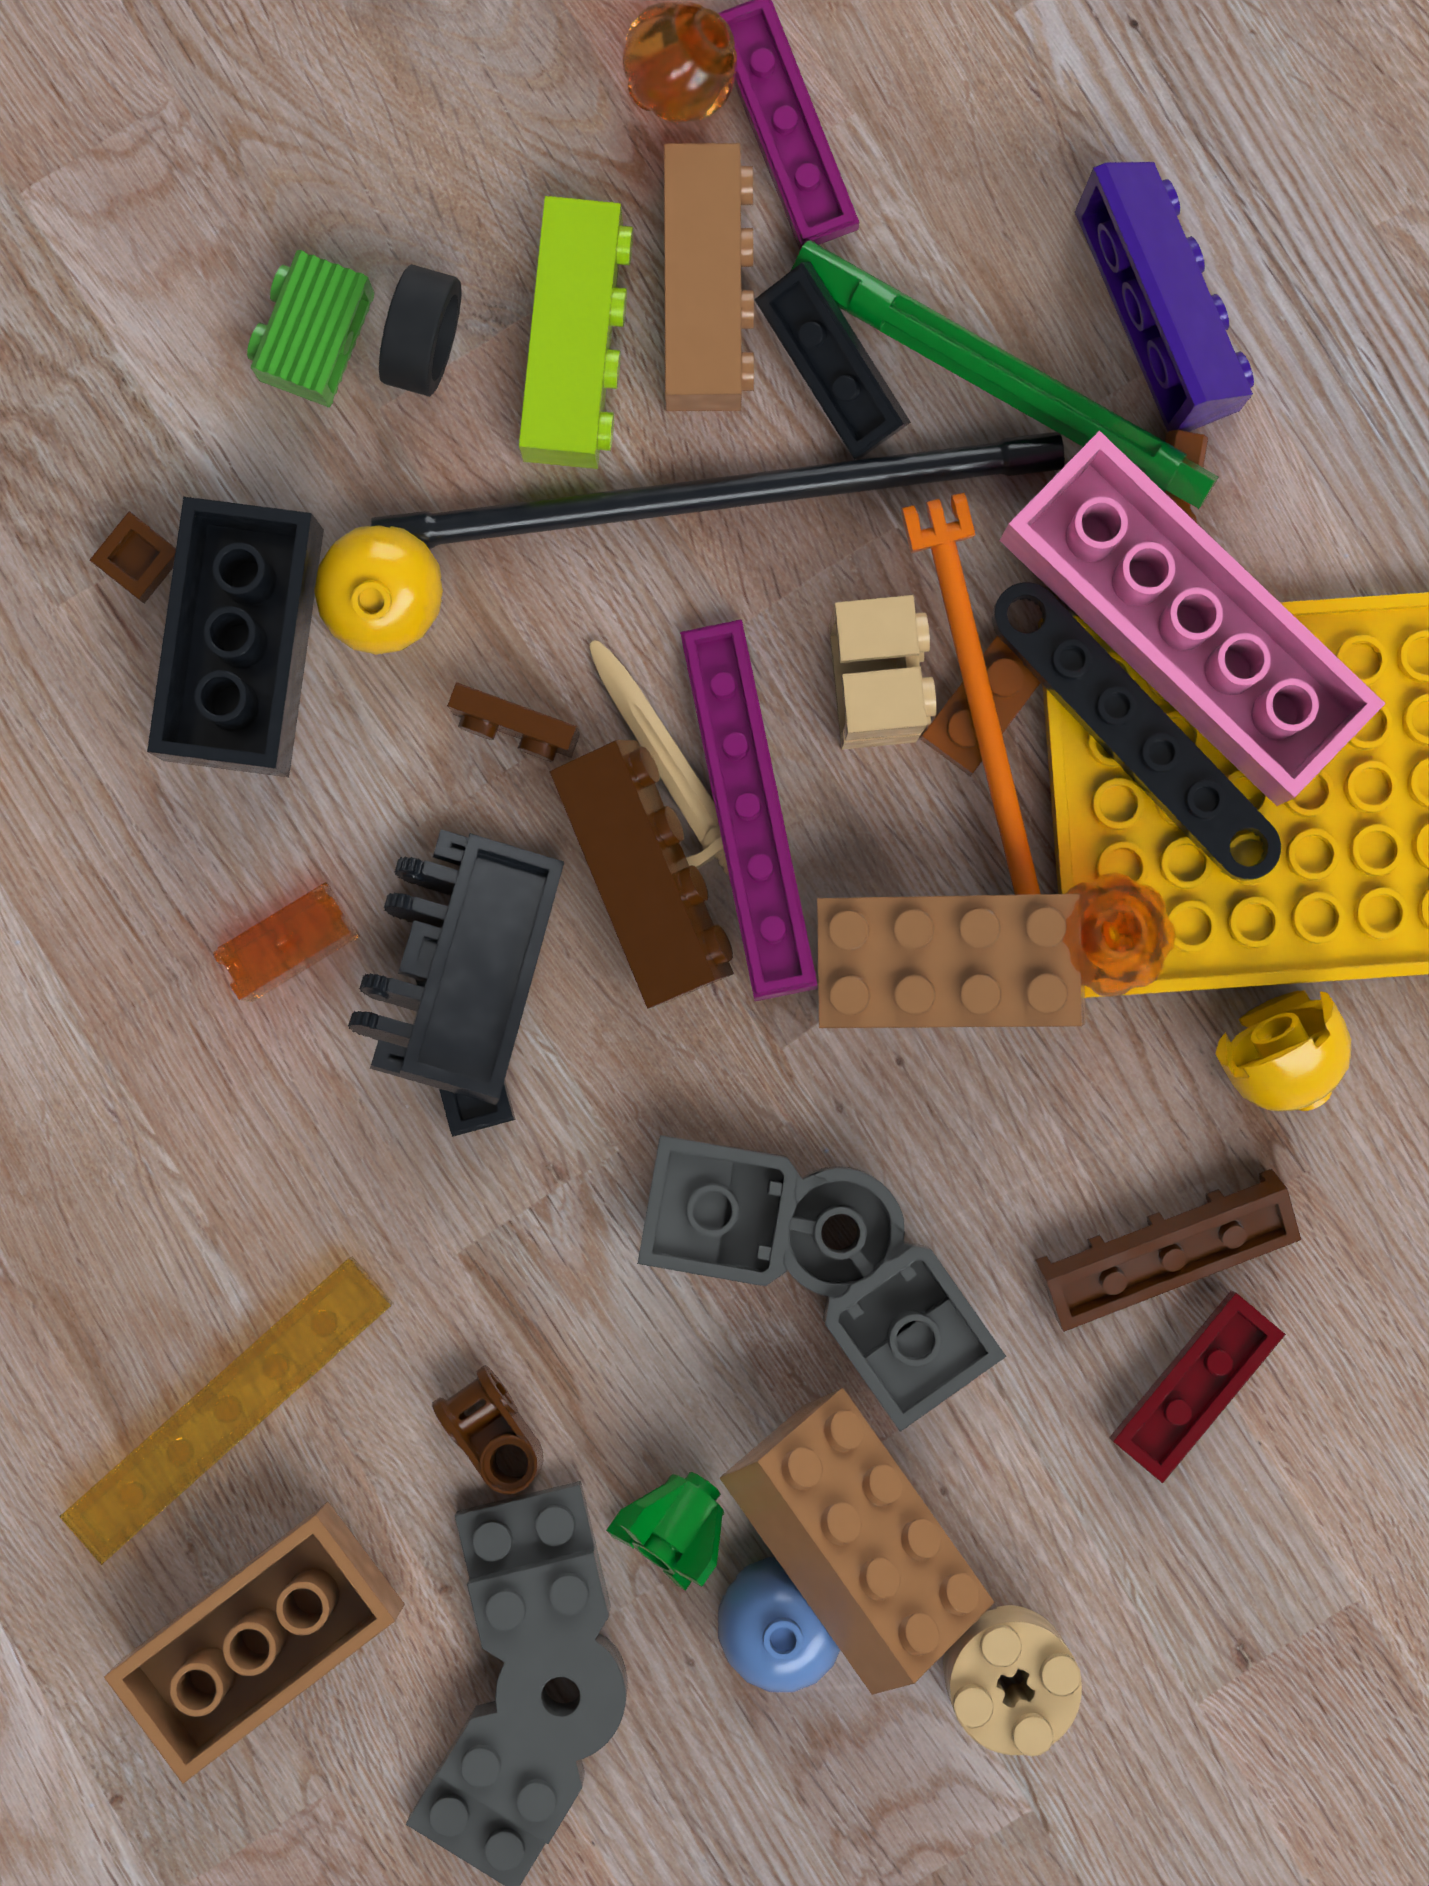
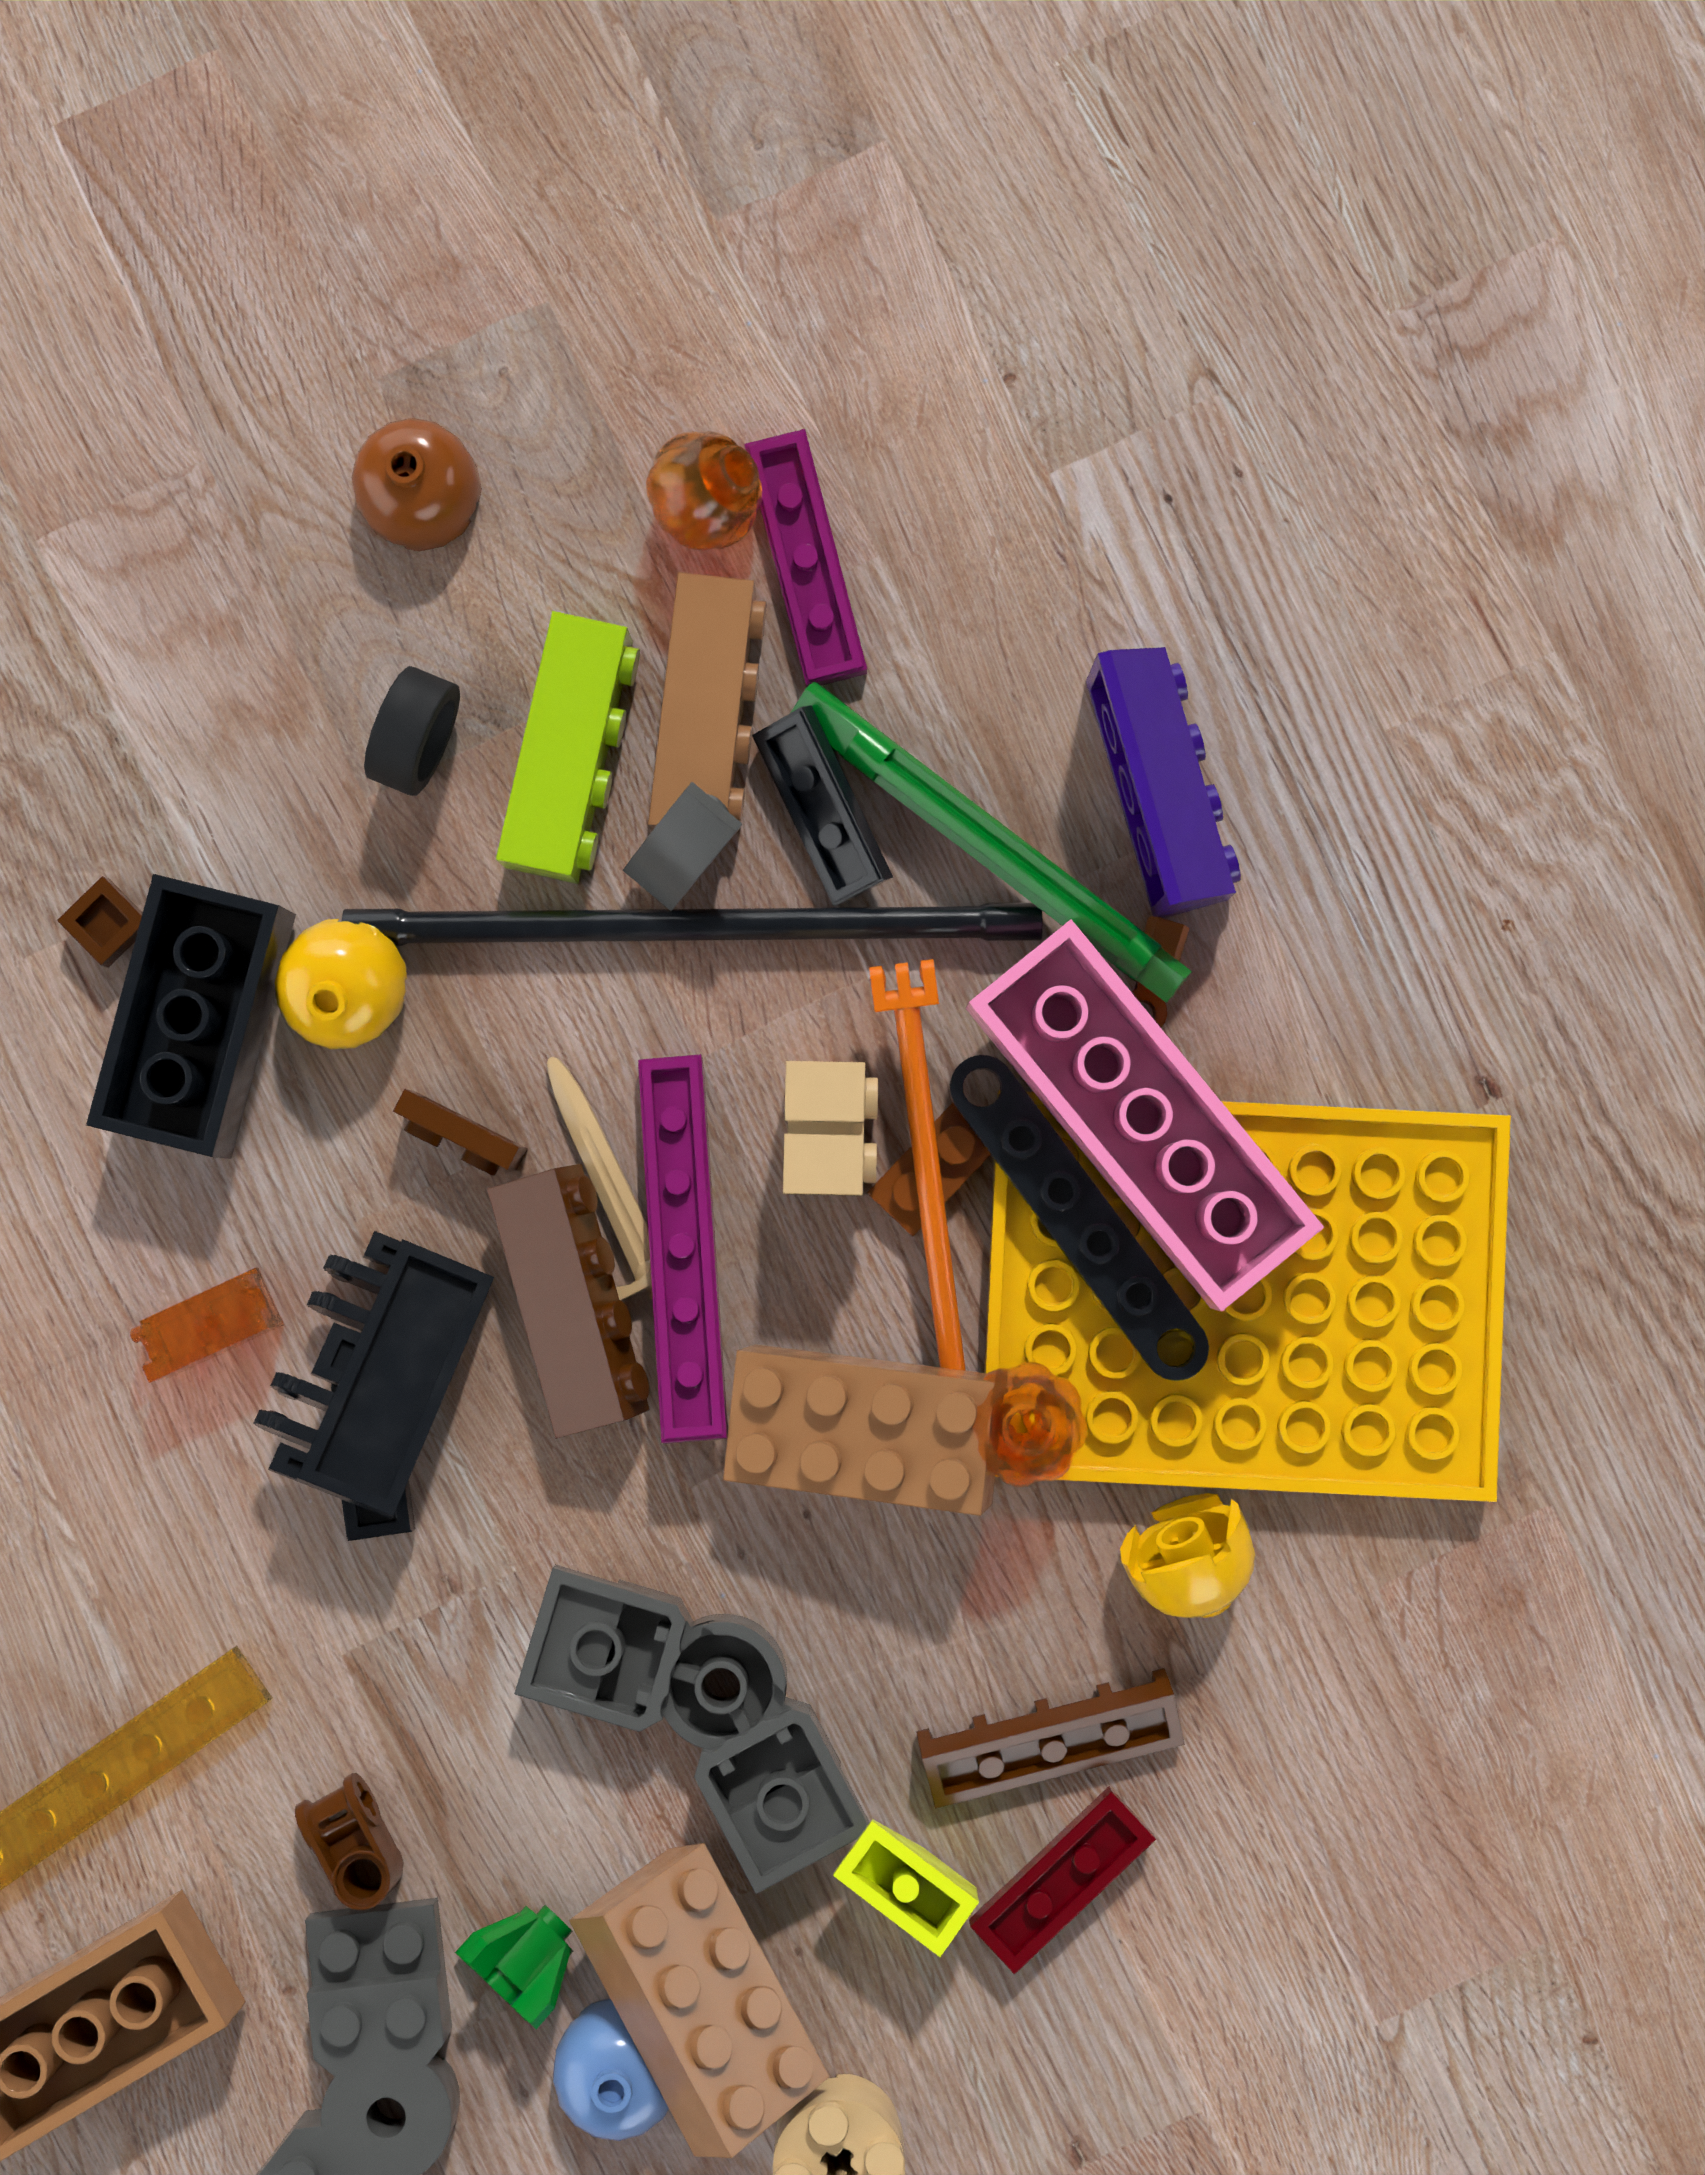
camera: 10 degrees right, 0 degrees up
(310, 327) = (305, 712): bright green brick -> none
(391, 92) = (416, 484): none -> dark orange cylinder
(702, 410) = (682, 846): none -> dark grey slope
(1049, 1405) = (908, 1886): none -> neon yellow slope

